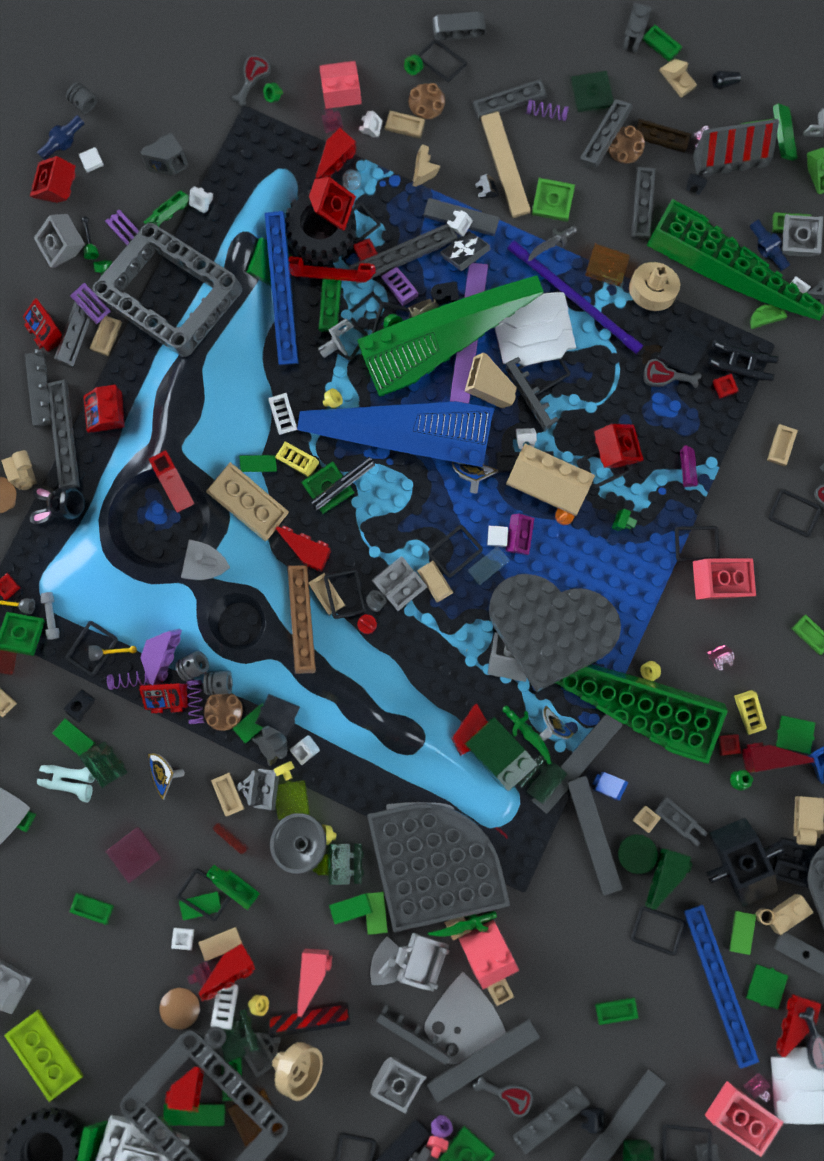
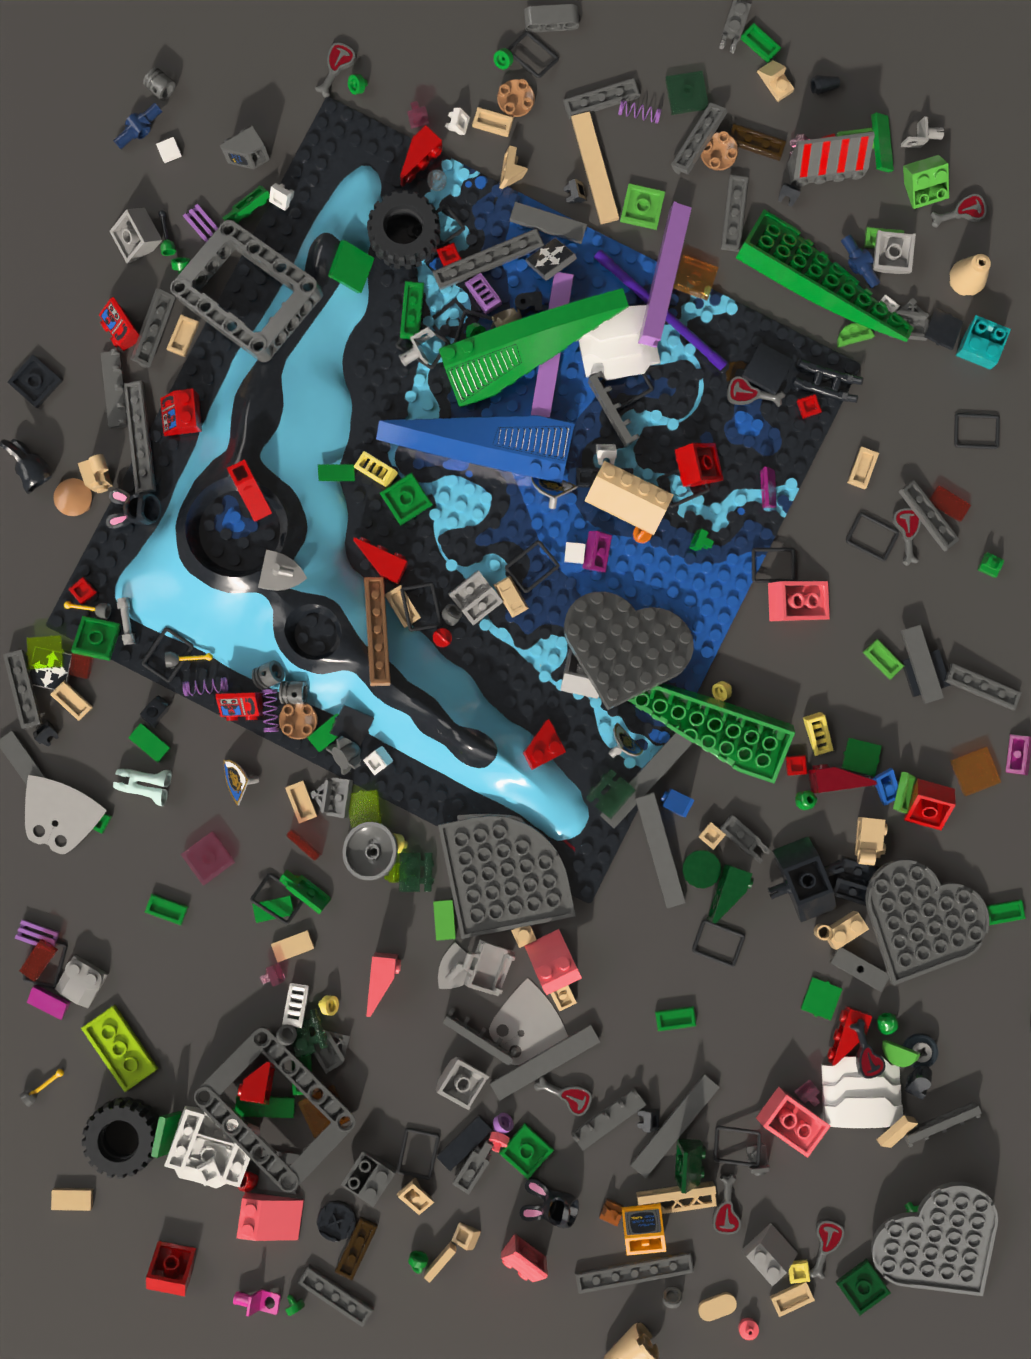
camera: 10 degrees left, 5 degrees up
(53, 180) = (129, 171): red slope -> none
(84, 307) = (159, 304): medium lavender tile -> none
(100, 767) = (175, 771): clear green plate -> none
(159, 654) = (235, 663): medium lavender slope -> none
(179, 1008) = (252, 1006): medium nougat dish -> none
(182, 938) = (255, 940): white tile -> none
(230, 968) = (301, 970): red slope -> none
(247, 501) = (325, 511): tan tile -> none
(272, 400) = (372, 436): white slope -> none
(281, 288) = (362, 292): blue plate -> none
(284, 770) = (358, 780): light yellow tile -> none
(298, 1063) = (366, 1060): tan piece -> none
(310, 1021) = (378, 1021): black tile -> none
(332, 201) = (416, 205): red slope -> none
(332, 398) = (413, 408): light yellow tile -> none
(340, 84) = (427, 78): coral slope -> none
(342, 483) = (421, 495): black axle -> none
(351, 908) = (420, 915): green tile -> none
(363, 274) = (379, 272): red piece -> none
(460, 927) = (541, 930): green piece -> none
(461, 222) = (547, 230): white tile -> none
(488, 565) = (564, 582): clear light blue tile -> none
(489, 382) = (571, 397): tan slope -> none
(501, 754) = (571, 769): dark green slope -> none
(528, 732) = (598, 748): green piece -> none
(557, 237) = (640, 251): flat silver piece -> none
(577, 263) = (664, 275): none -> medium lavender tile
(658, 278) = (746, 293): tan piece -> none
(721, 655) = (792, 677): clear pink tile -> none
(721, 986) = (776, 997): blue plate -> none
(742, 932) = (800, 946): bright green tile -> none

